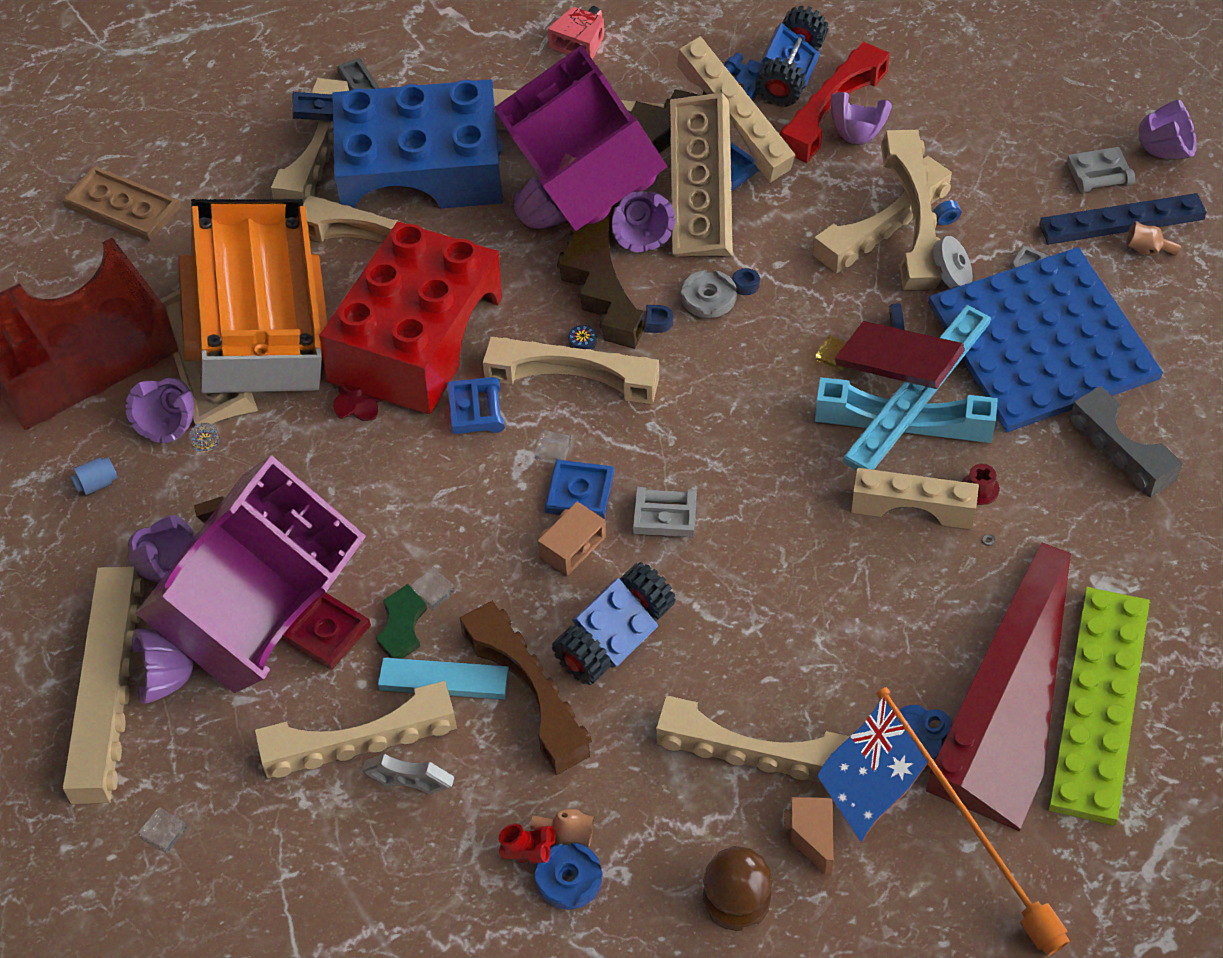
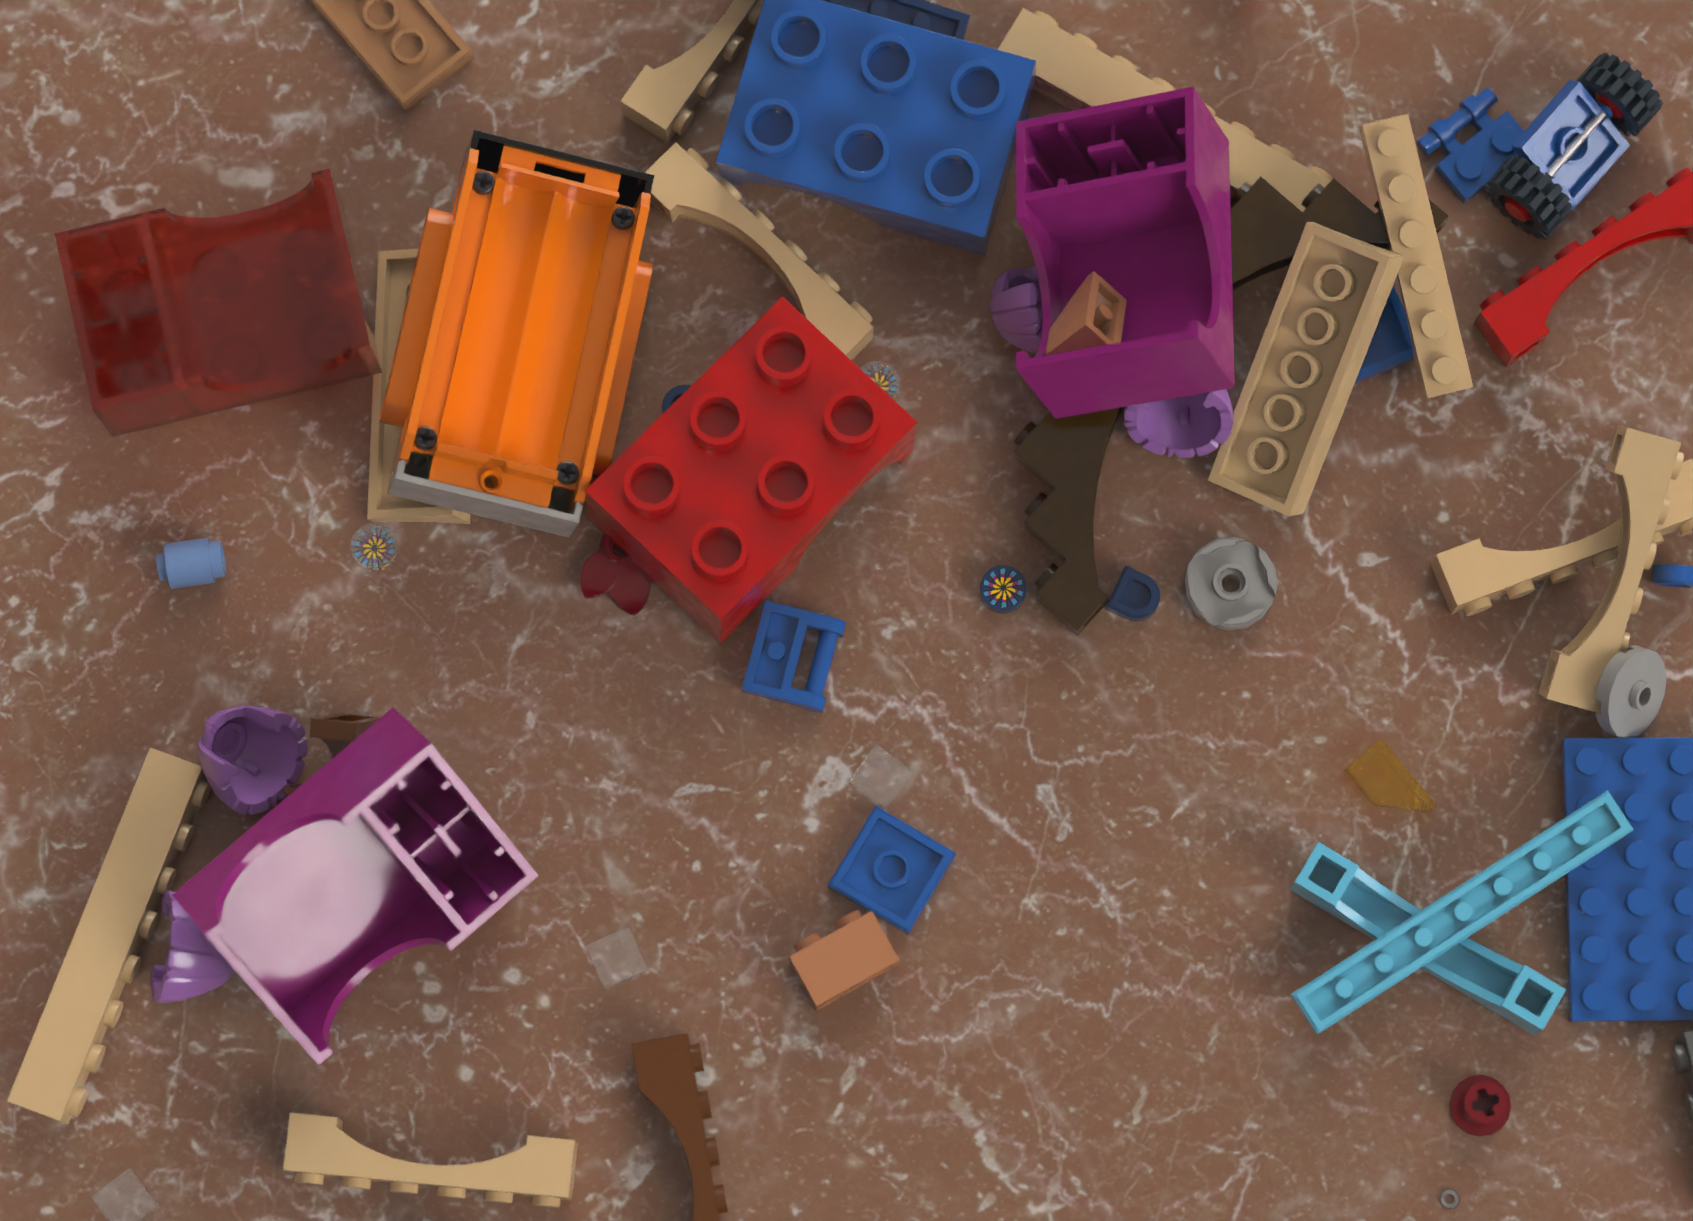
camera: 20 degrees right, 25 degrees up
(160, 409) = (324, 488): medium lavender hair -> none
(326, 630) = (444, 983): dark red plate -> none
(404, 610) = (542, 1020): dark green tile -> none
(460, 678) = (580, 1116): medium azure tile -> none
(517, 359) = (874, 592): tan arch -> none
(614, 623) = (845, 1140): plate -> none
(665, 518) = (993, 977): light grey plate -> none
(746, 281) = (1300, 577): dark blue tile -> none
(855, 122) = (1622, 326): medium lavender hair -> none
(896, 316) = (1498, 750): dark blue tile -> none
(900, 354) = (1460, 843): dark red tile -> none
(948, 500) = (1370, 1095): tan arch -> none

